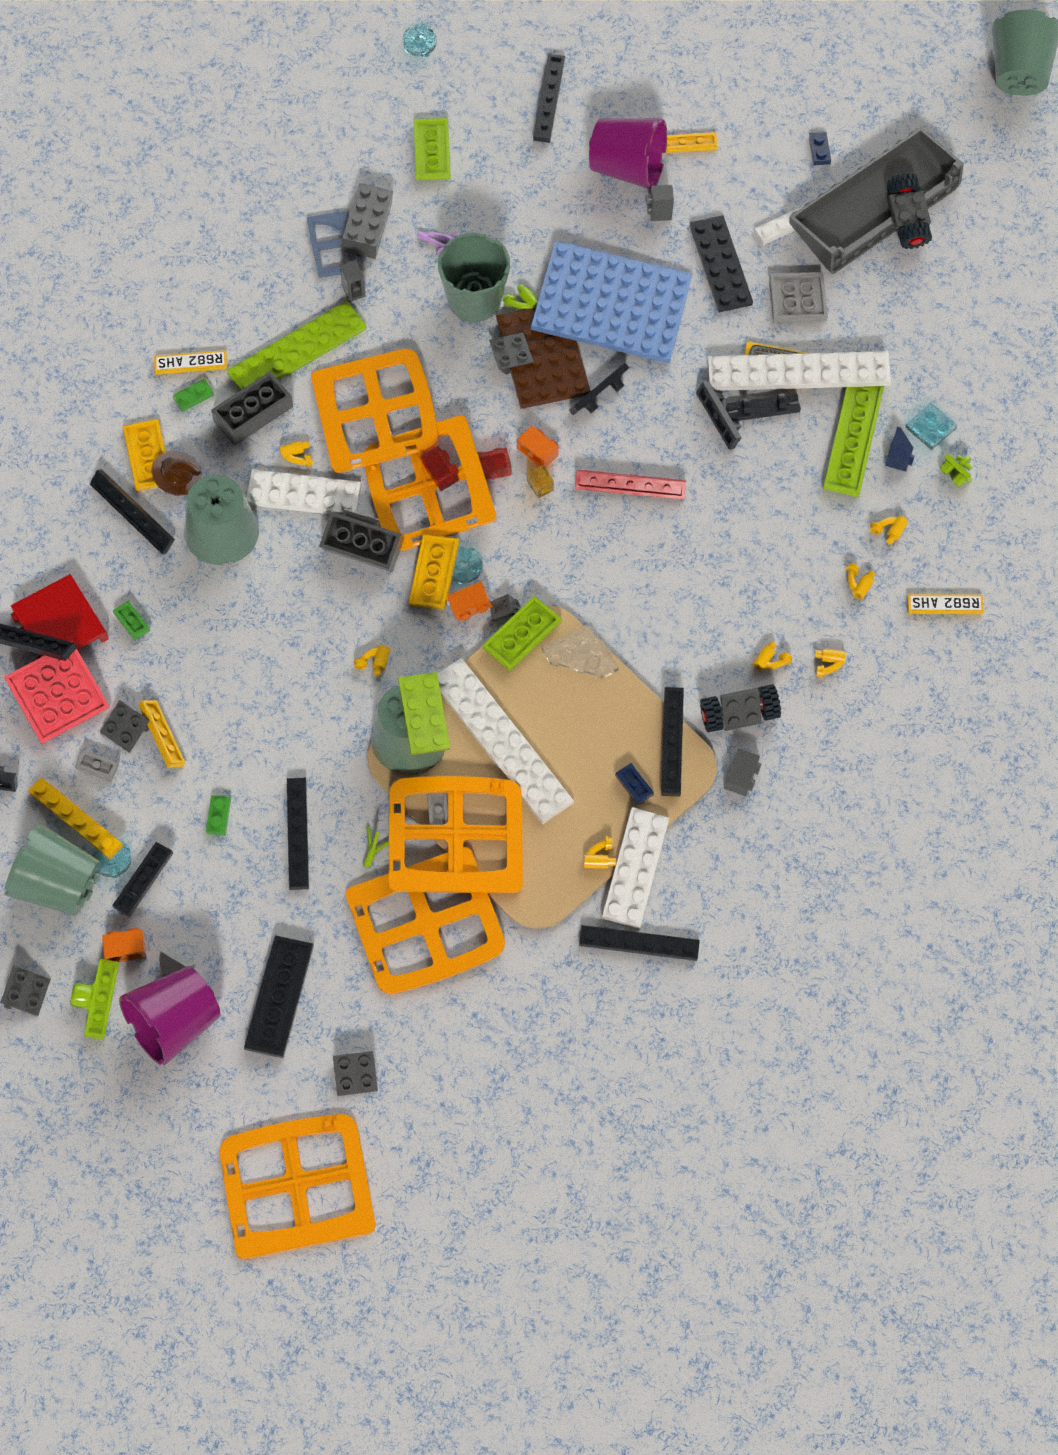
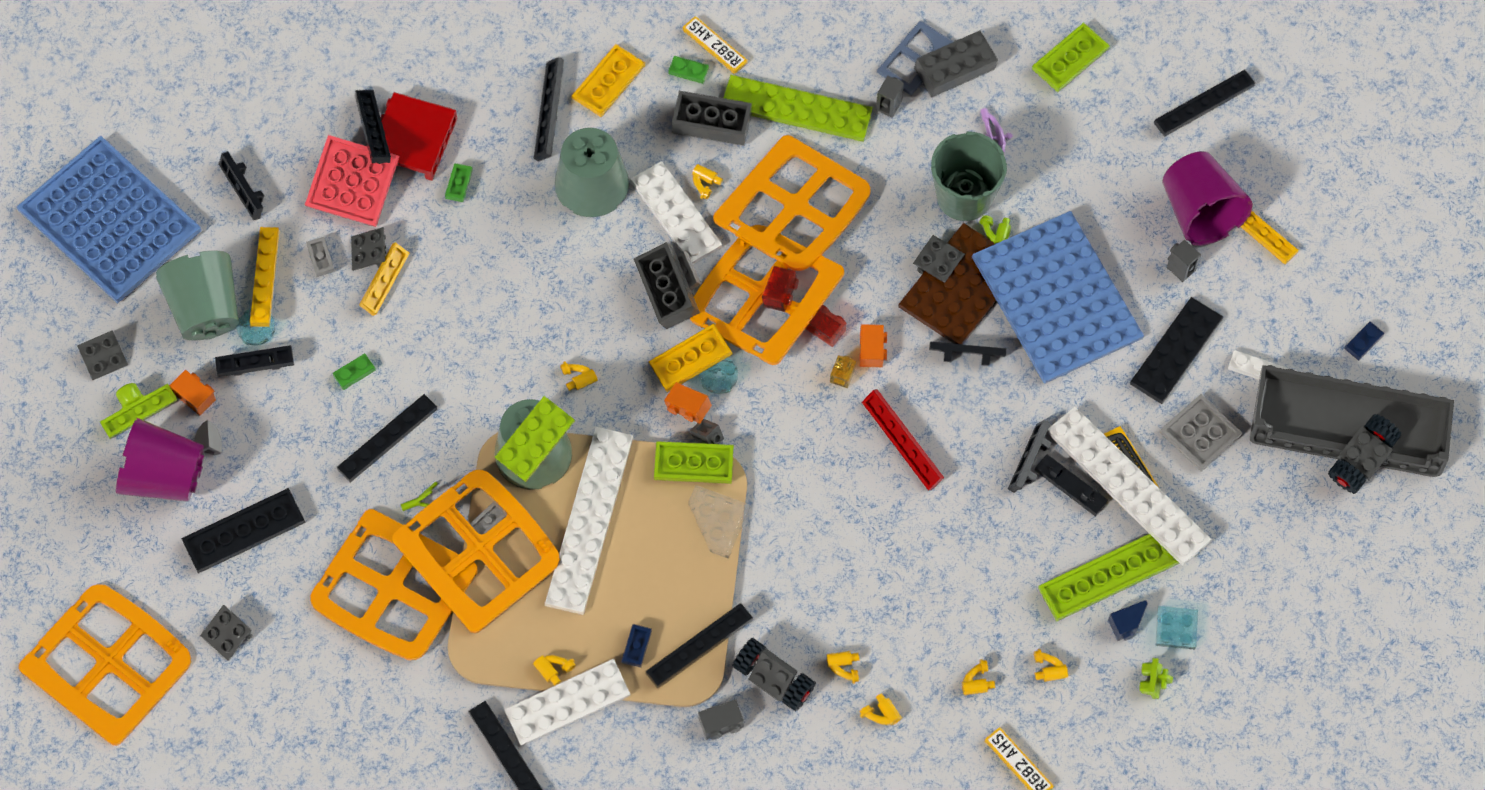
camera: 50 degrees right, 0 degrees up
(175, 472) = (610, 111): reddish brown piece -> none

